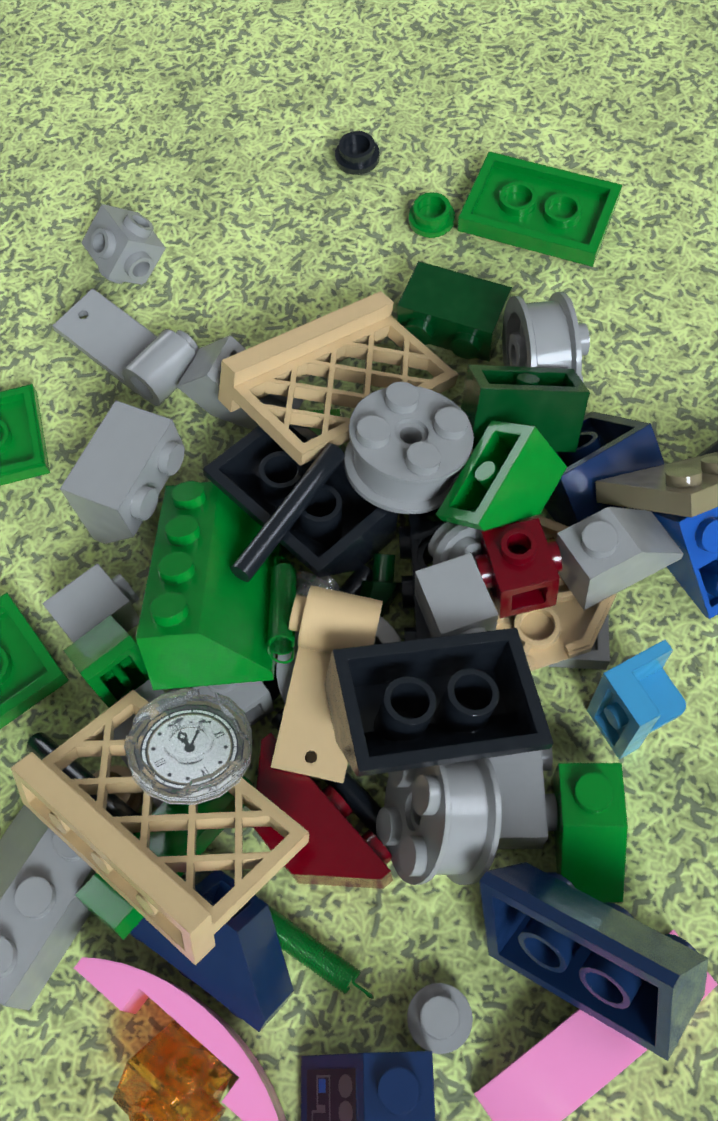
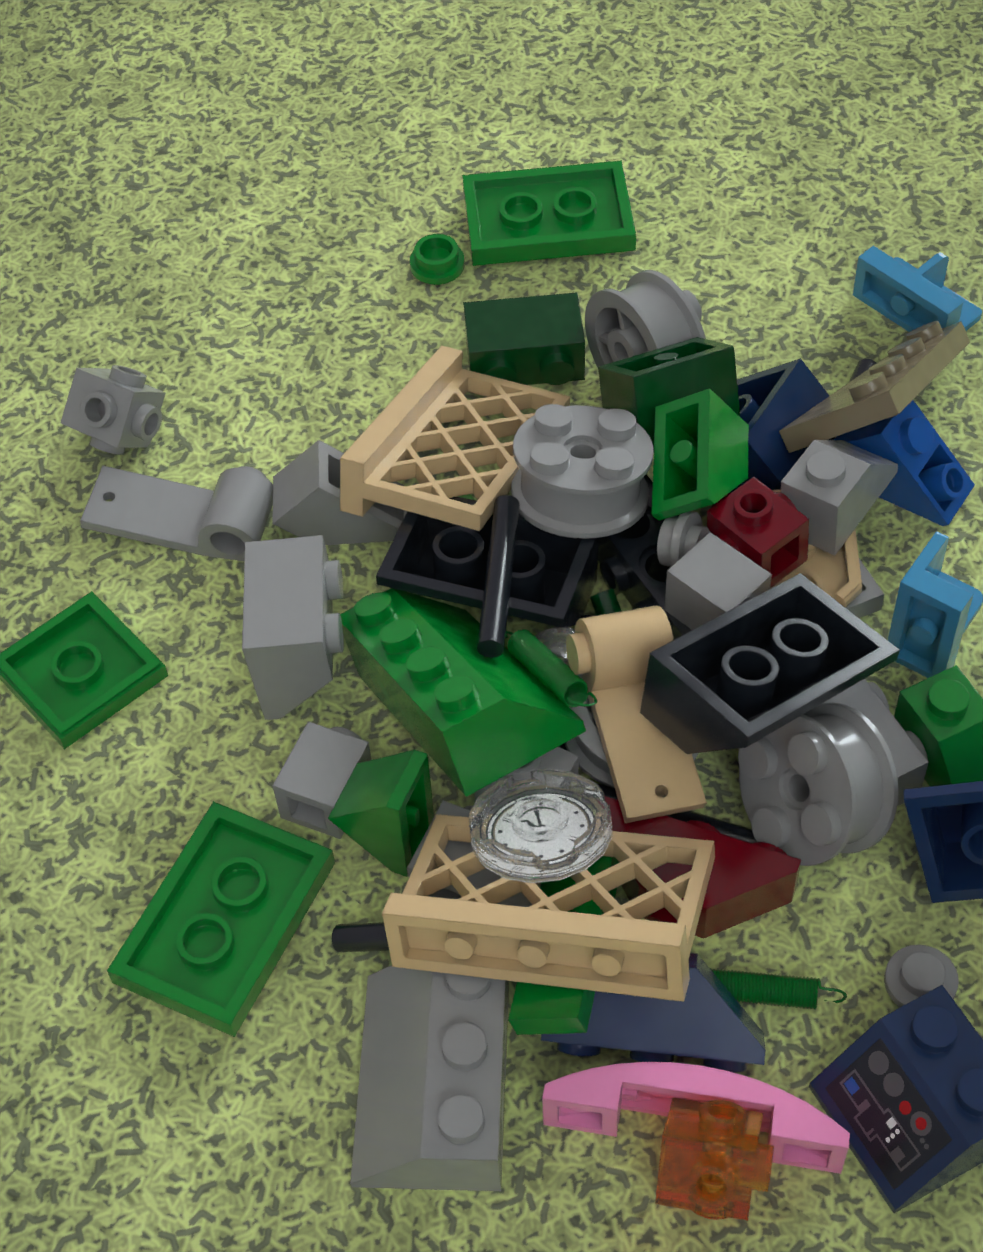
camera: 30 degrees left, 10 degrees down
(357, 153) = (314, 227): black plate -> none

